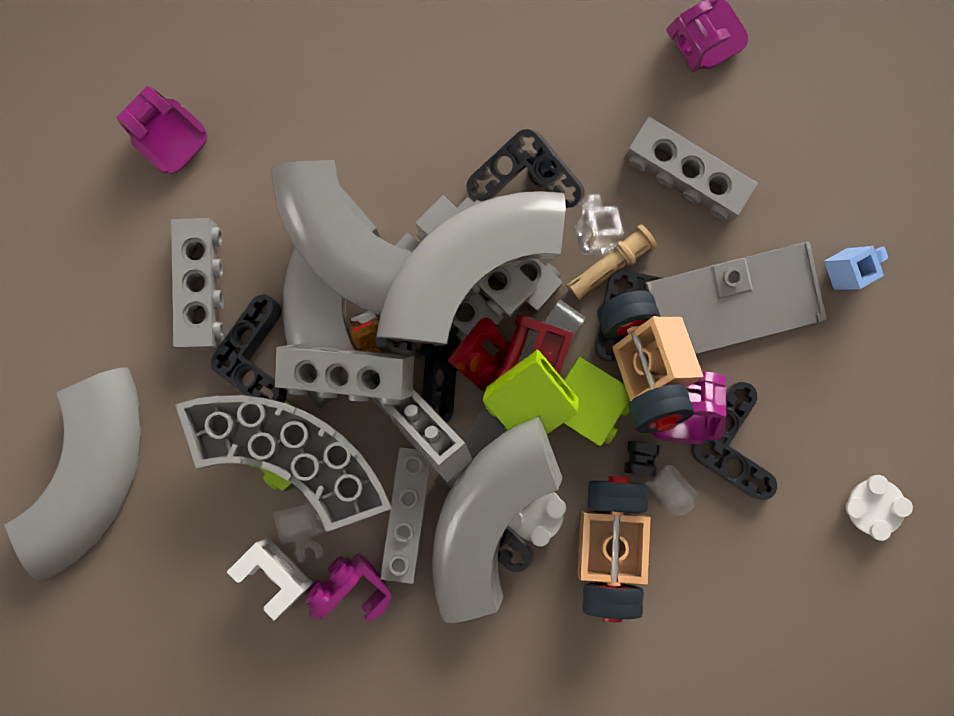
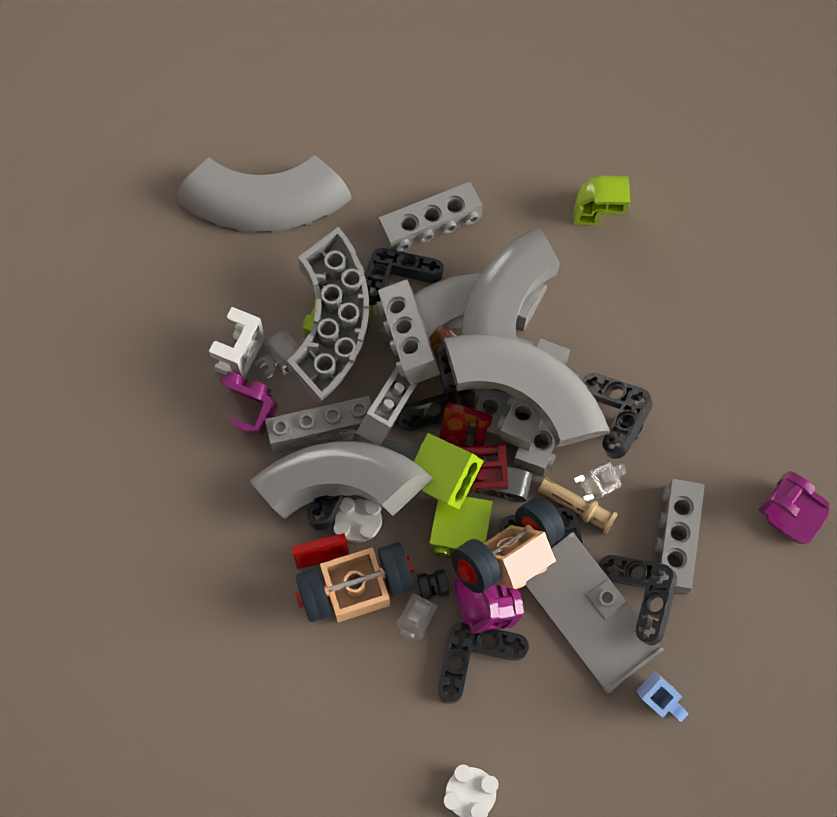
camera: 70 degrees right, 15 degrees down
(162, 130) = (533, 153): magenta piece -> none
(256, 74) = (601, 196): none -> lime brick
(556, 570) = (320, 551): none -> red tile
(746, 224) = (653, 590): none -> black beam

